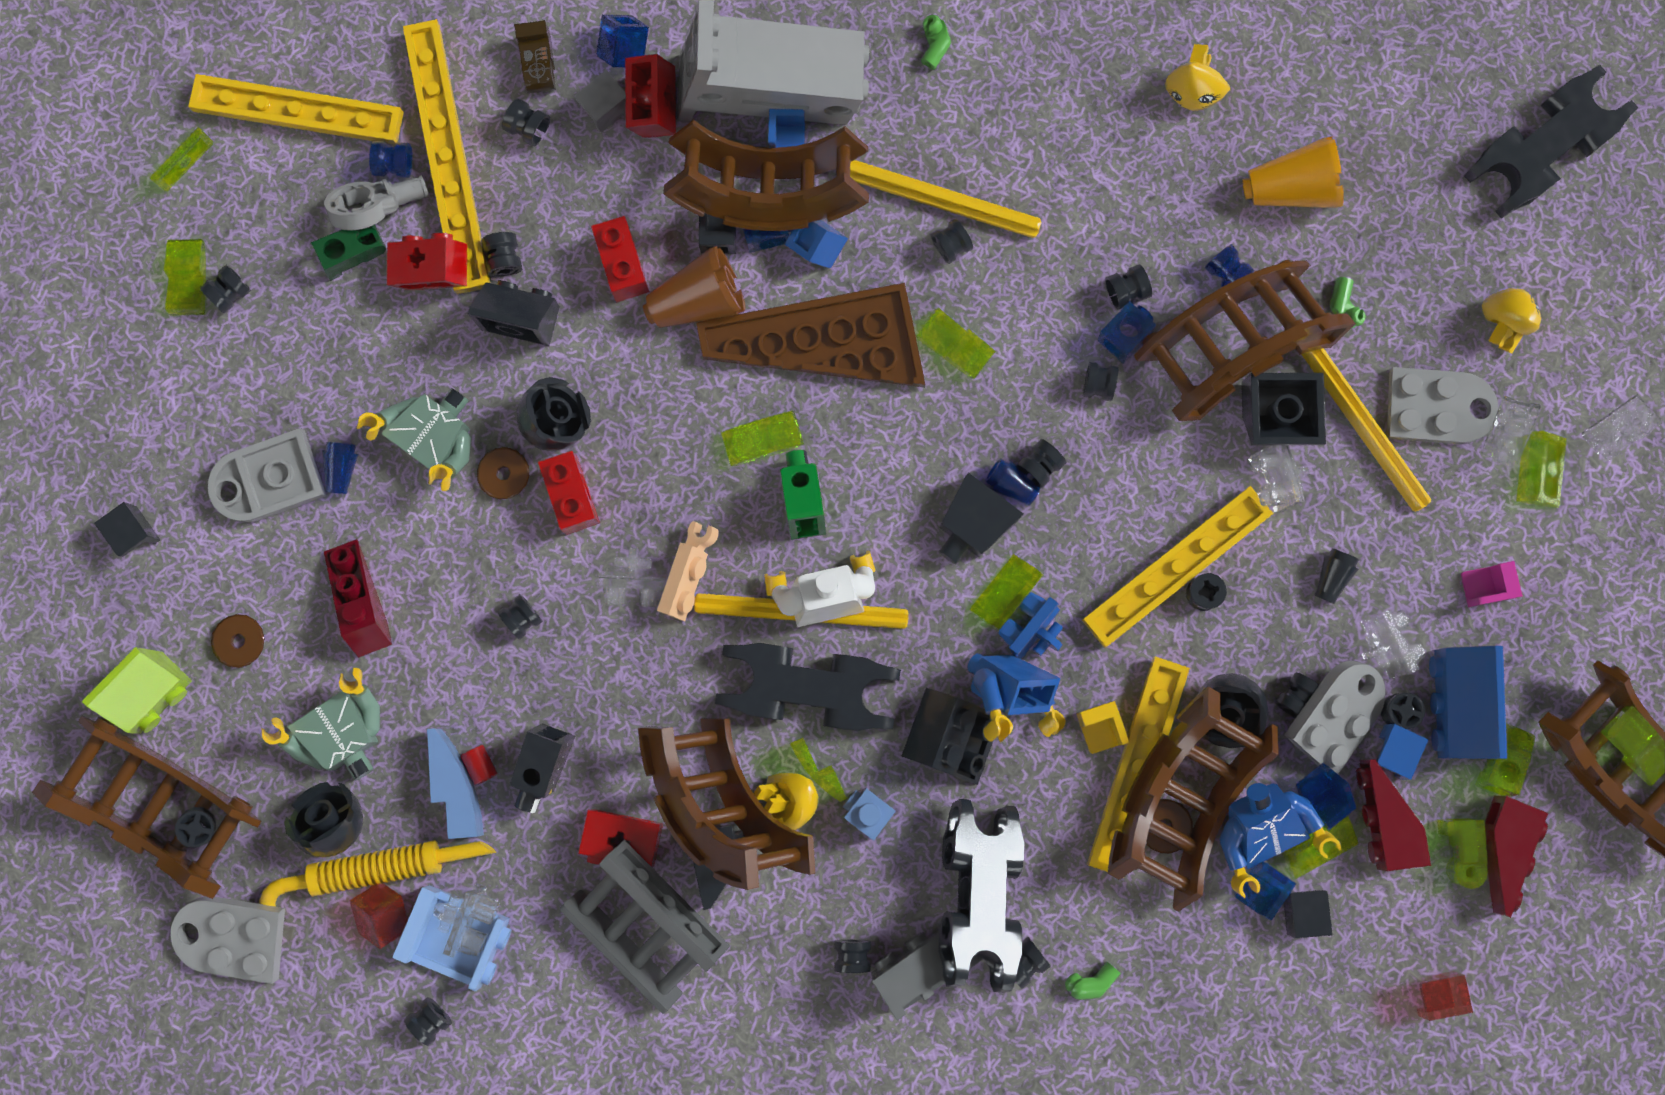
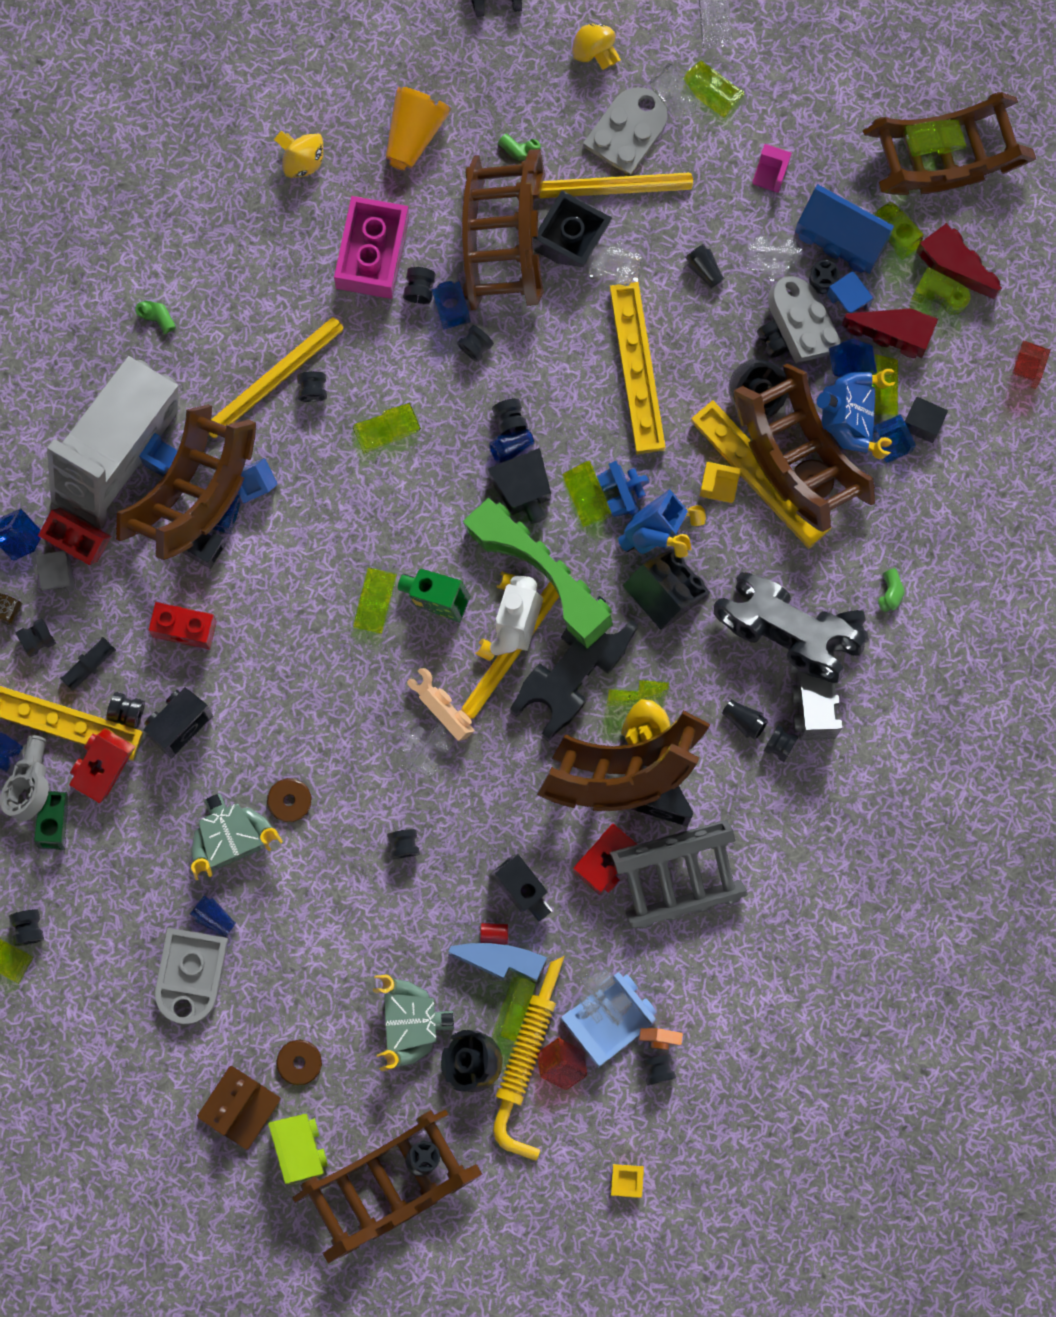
camera: 65 degrees left, 5 degrees down
(125, 529) = (167, 1098): black panel -> none
(157, 607) = (239, 1107): none -> reddish brown bracket
(233, 938) = (518, 1180): light grey plate -> none
(294, 1053) = (627, 1180): none -> yellow plate
(356, 600) = (319, 955): dark red slope -> none
(408, 831) = (513, 1009): none -> clear neon green slope
(461, 1005) = (660, 1038): none -> orange plate
(529, 190) = (88, 664): none -> black pin
(552, 415) = (271, 736): black cylinder -> none
(569, 492) = (334, 757): red brick -> none
(696, 293) = (241, 586): dark orange cone -> none
(840, 336) = (332, 505): reddish brown wing -> none
(858, 903) = (746, 719): none -> black cone
(865, 659) = (498, 533): none -> bright green arch
(867, 812) = (687, 675): medium blue brick -> none
(1139, 213) = (371, 247): none -> dark pink brick
(1198, 593) = (665, 365): black wheel -> none
(1227, 266) = (447, 210): clear blue wheel -> none

